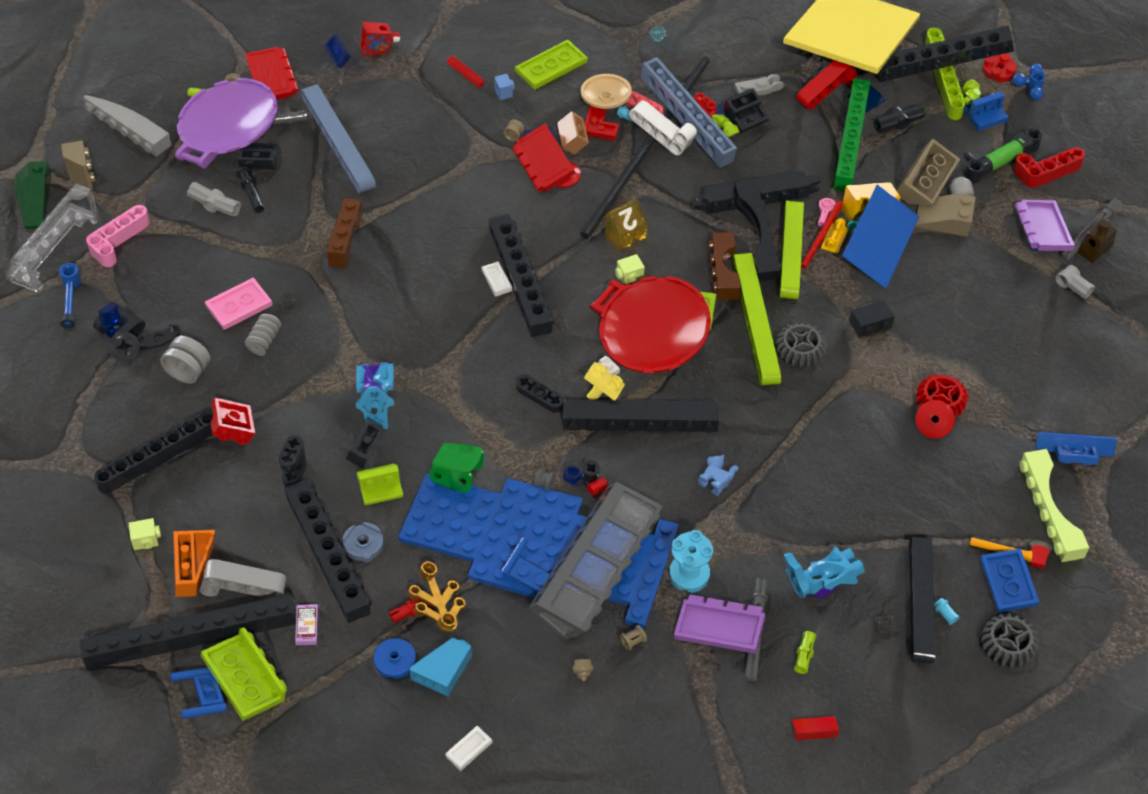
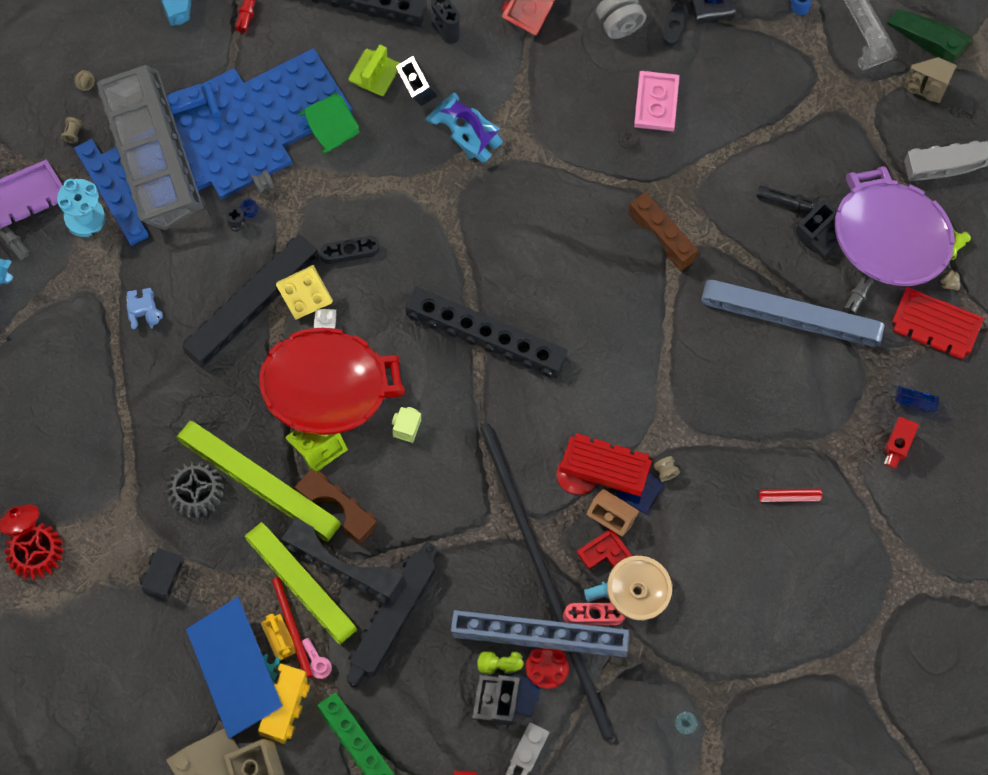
camera: 130 degrees right, 15 degrees up
(105, 239) = (828, 67): bright pink beam -> none
(213, 199) = (798, 160): light grey piece -> none
(262, 334) = (601, 91): light grey piece -> none
(370, 549) = (332, 33): sand blue plate -> none
(445, 620) = (228, 28): pearl gold plant -> none
(496, 279) = (504, 314): white tile -> none
(504, 86) = (734, 508): medium blue plate -> none
(551, 64) = (733, 584): lime tile -> none
(597, 486) = (219, 218): red hinge -> none
(626, 225) = (453, 458): clear yellow slope -> none
(662, 129) = (543, 595): white beam -> none

